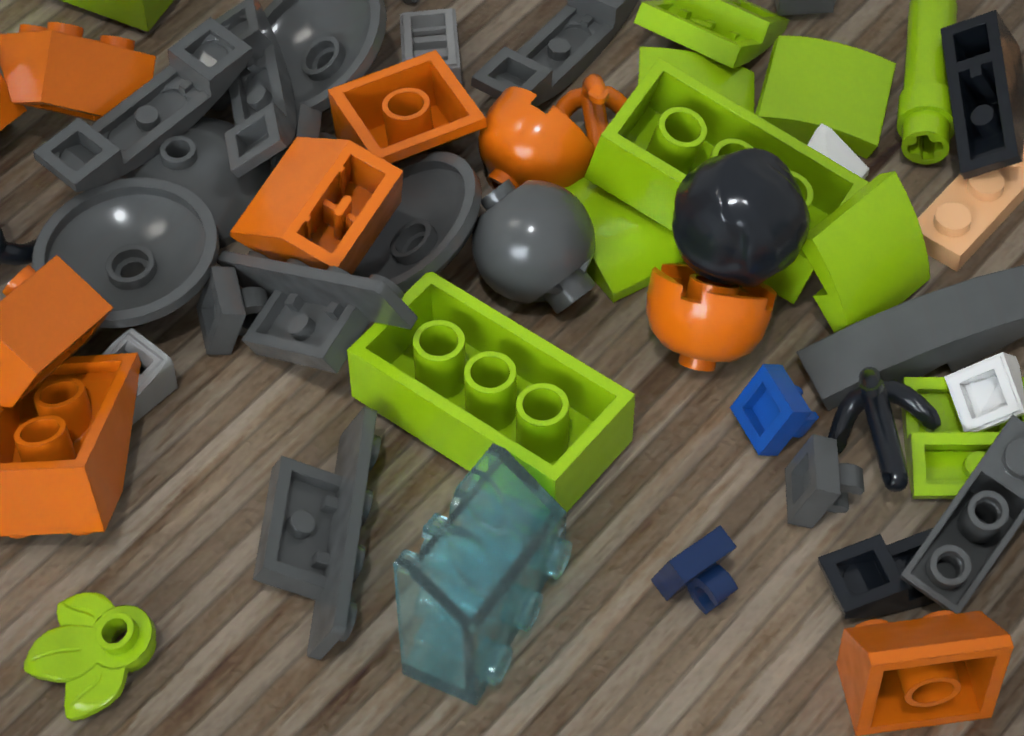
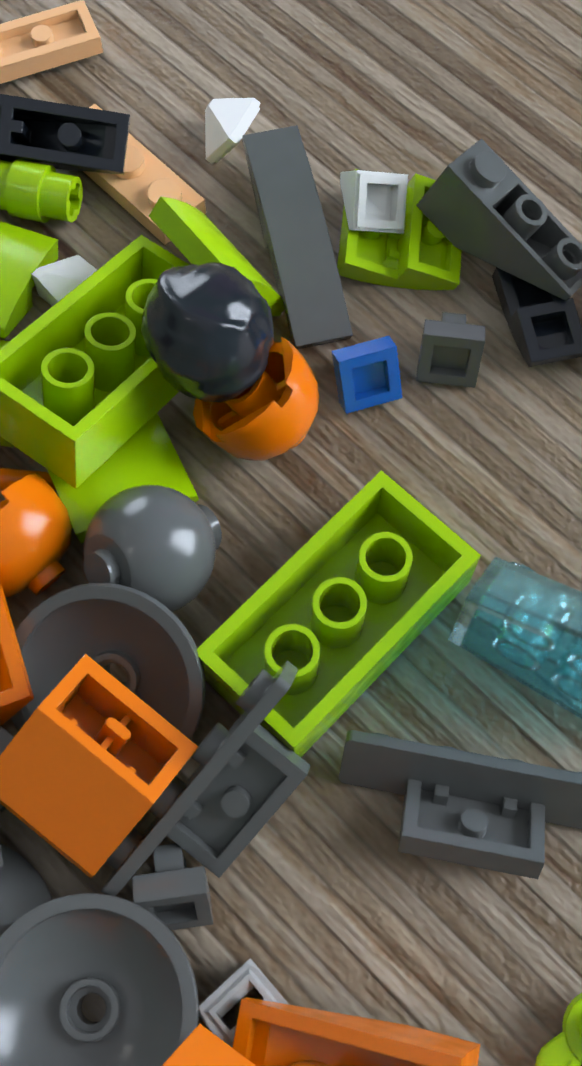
camera: 85 degrees left, 15 degrees up
(700, 572) = (537, 460): dark blue tile -> none
(875, 397) = (386, 276): black piece -> none

